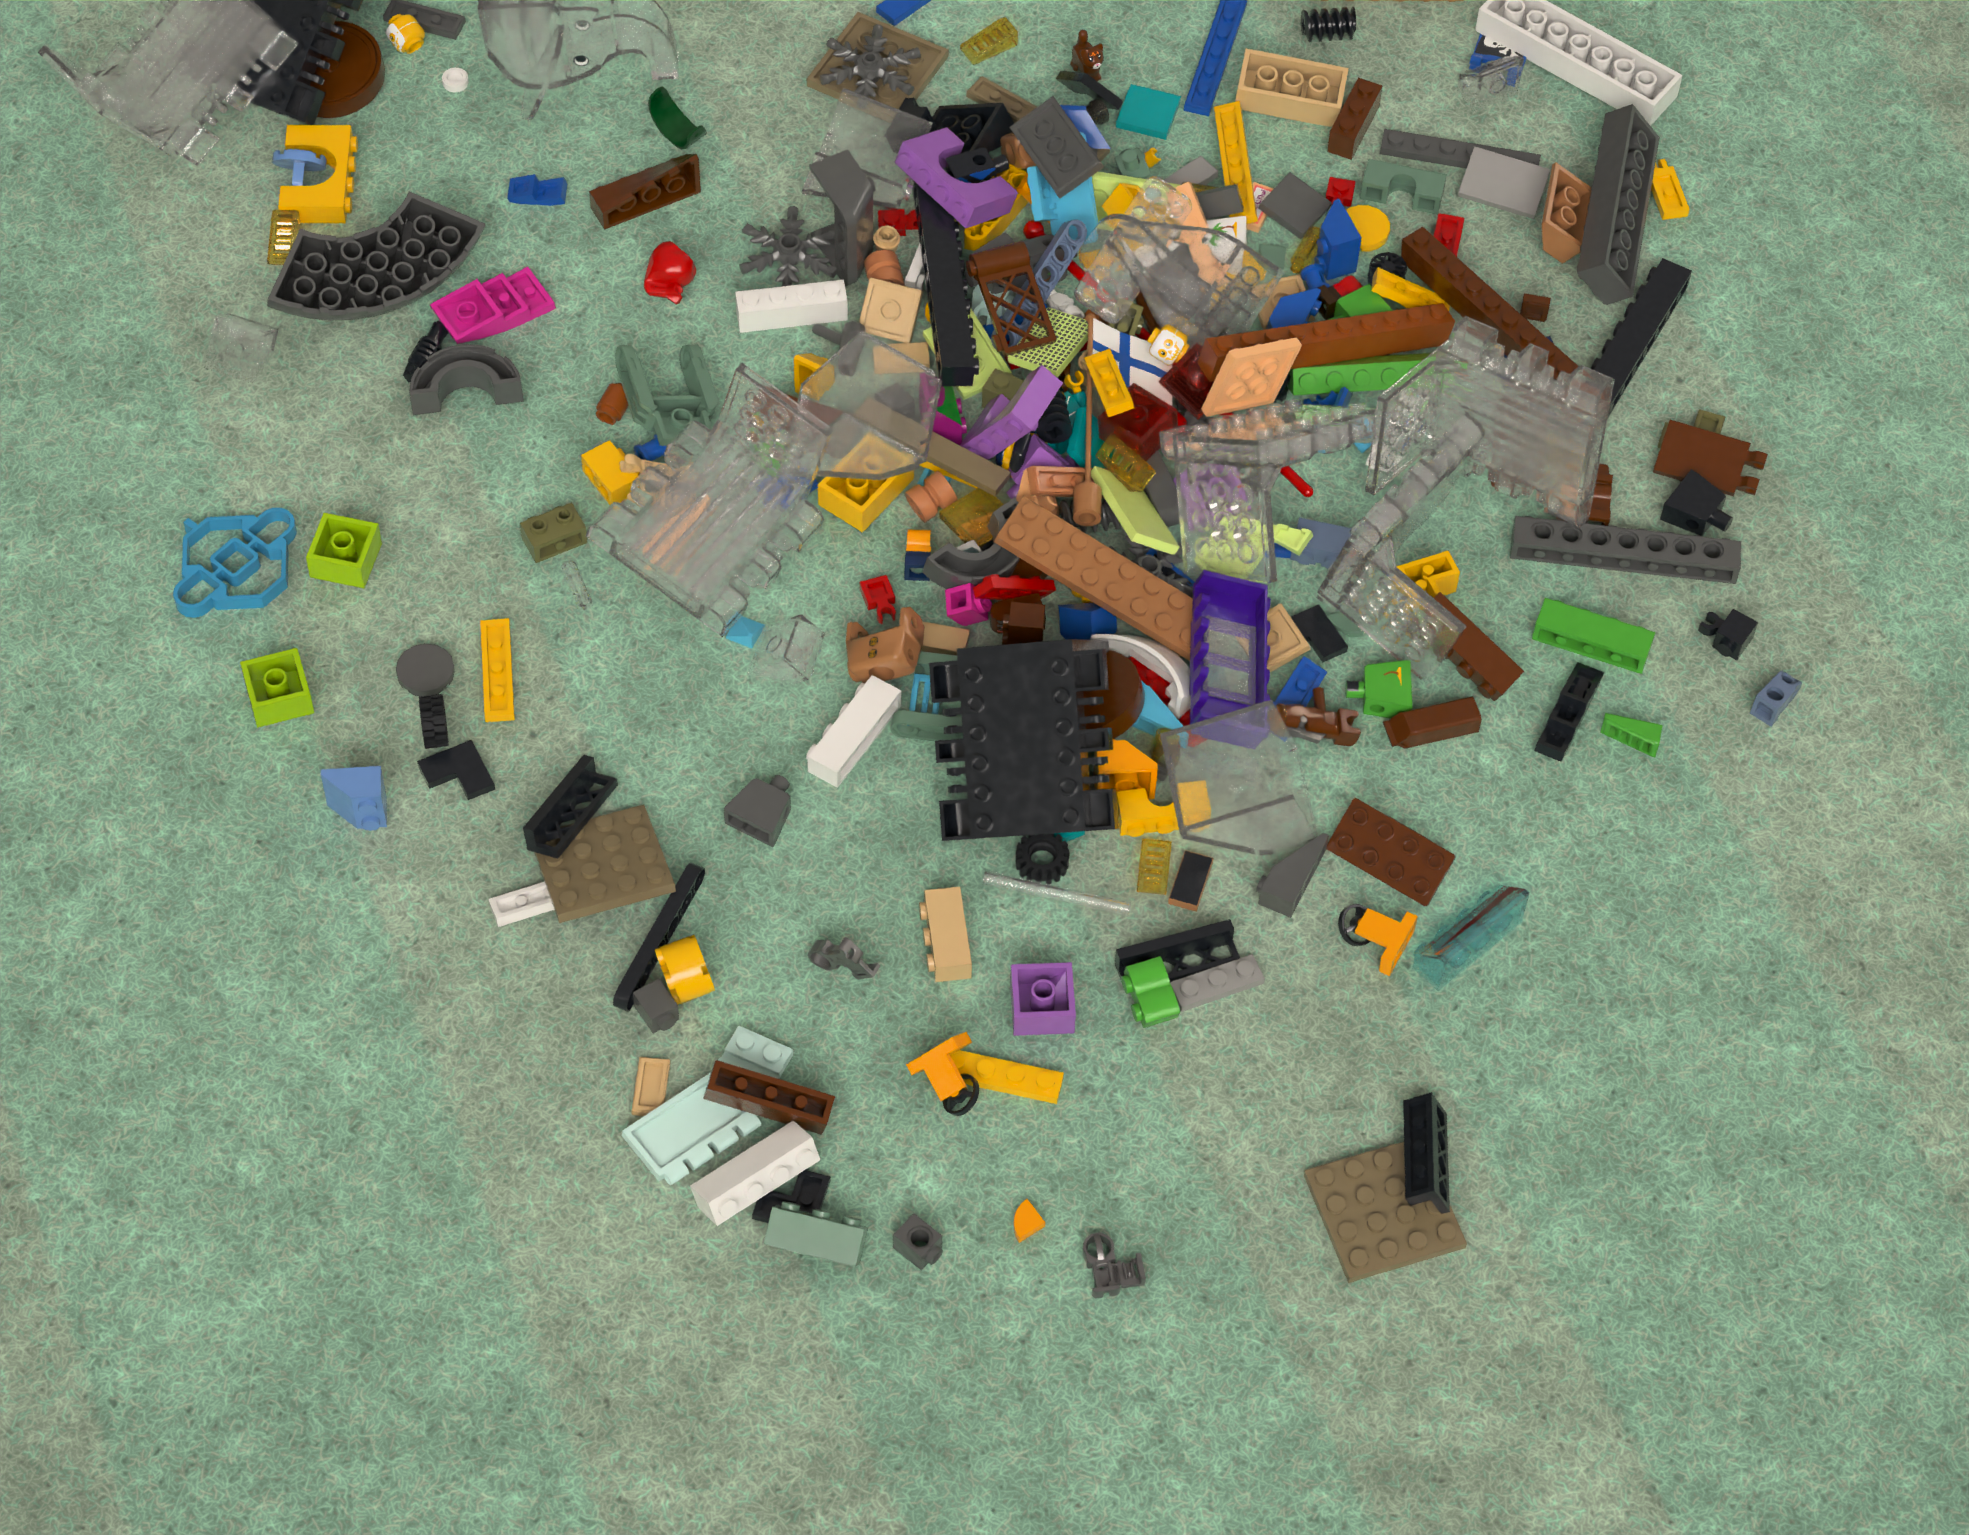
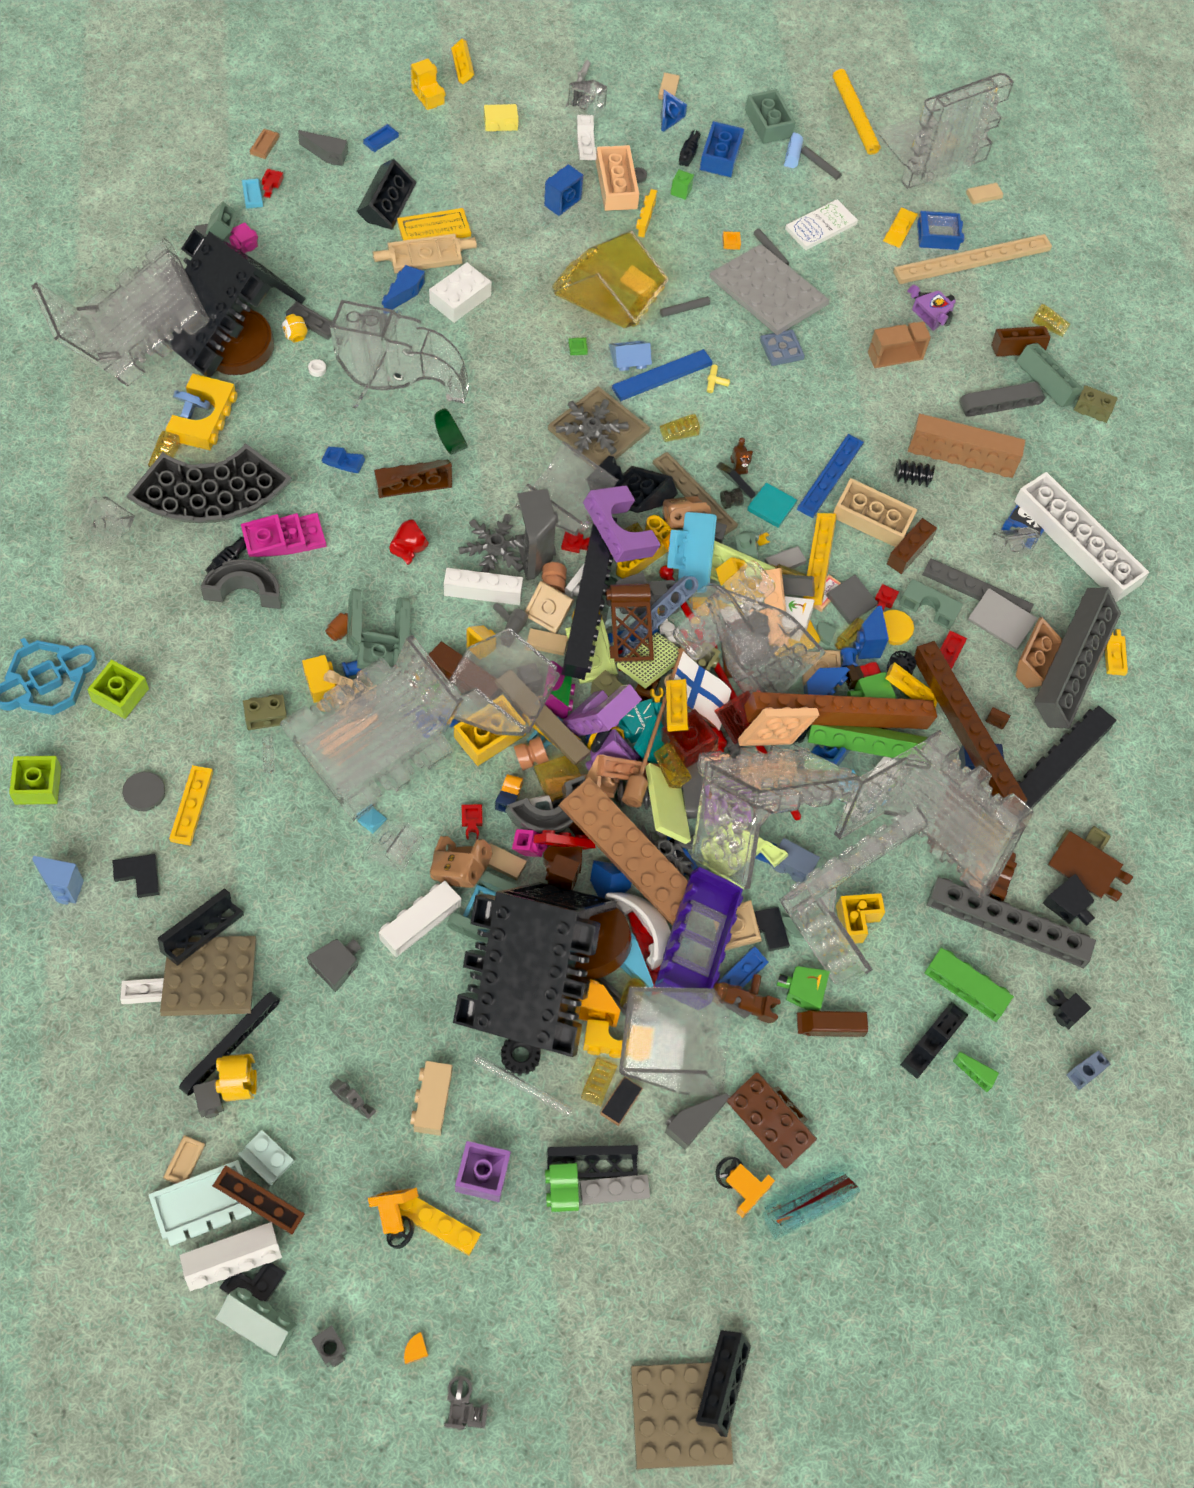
camera: 10 degrees right, 5 degrees up
(433, 721) = (131, 834): black tyre -> none
(886, 238) = (562, 555): tan cone -> none
(976, 166) = (637, 519): black torso -> none
(1055, 422) = (631, 723): black piece -> none
(1056, 147) = (694, 521): dark grey tile -> none
(1085, 124) = (719, 507): slope -> none
(1168, 344) = (729, 684): head -> none
(1480, 657) = (880, 981): reddish brown brick -> none

